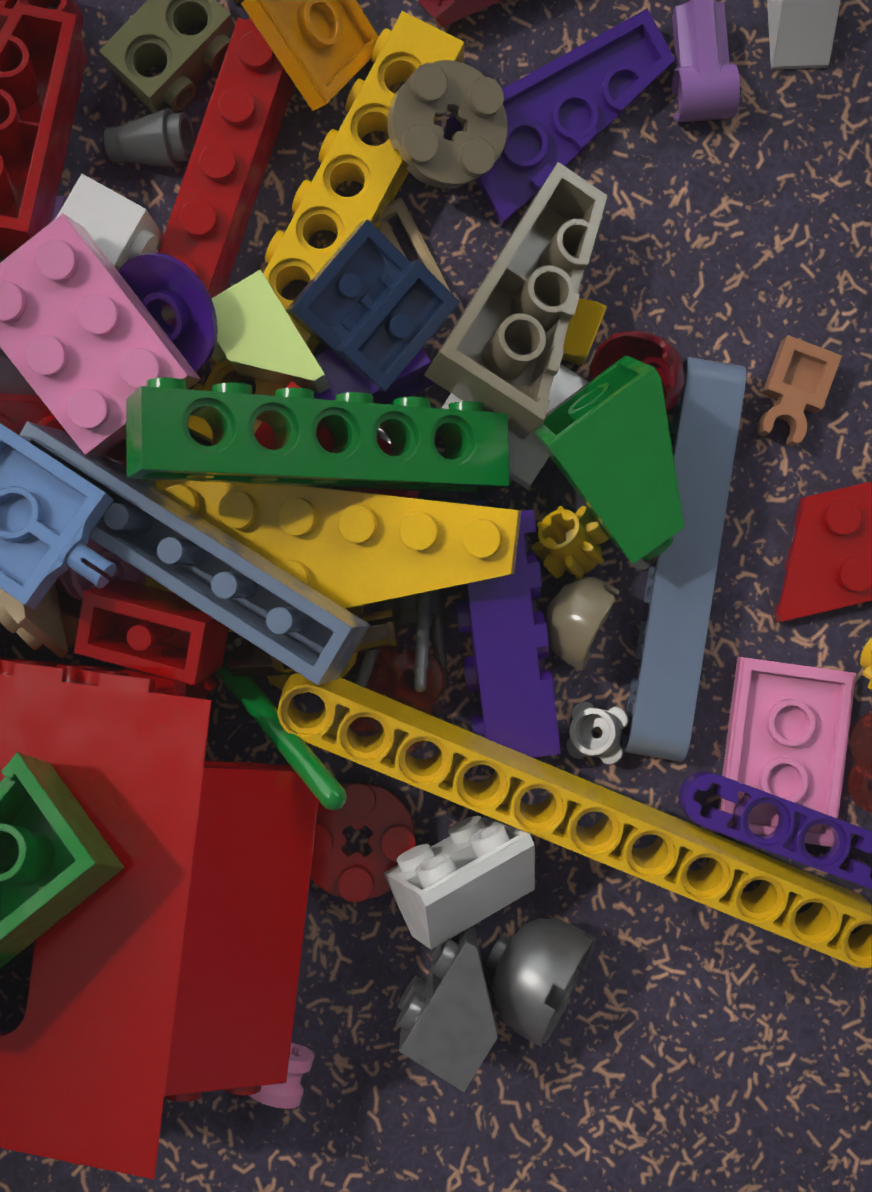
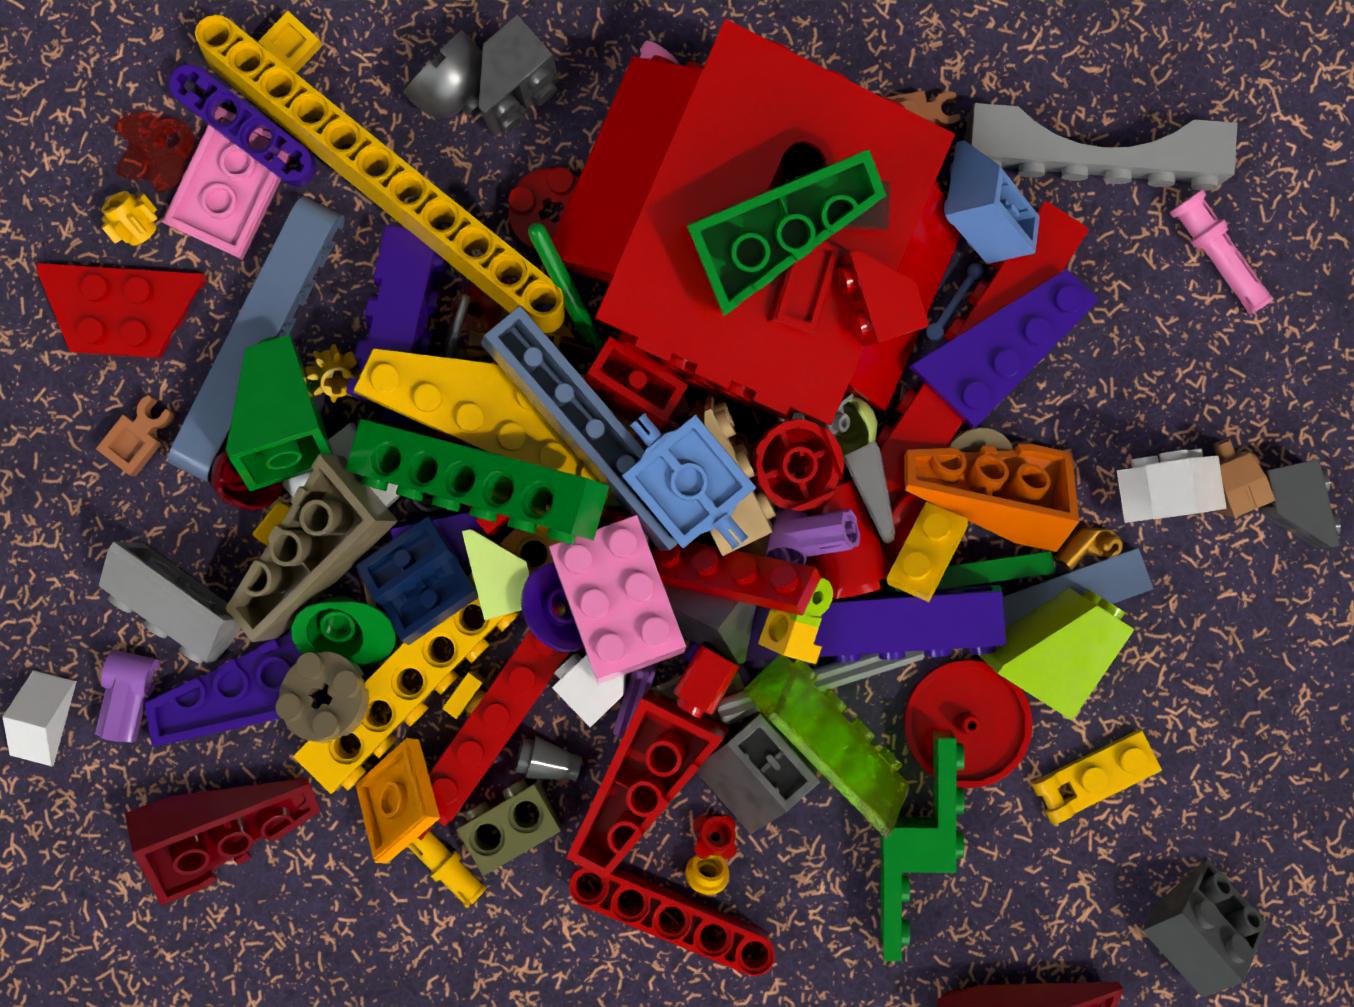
camera: 155 degrees left, 0 degrees up
(275, 188) = (466, 695): none -> yellow plate
(453, 223) = (345, 629): none -> green piece
(462, 878) = (481, 160): white slope -> none
(576, 617) = (342, 316): dark tan hair -> none
(581, 729) = (370, 234): light grey plate -> none
(685, 193) = (168, 600): none -> light grey slope
(766, 961) = (291, 42): none -> yellow plate

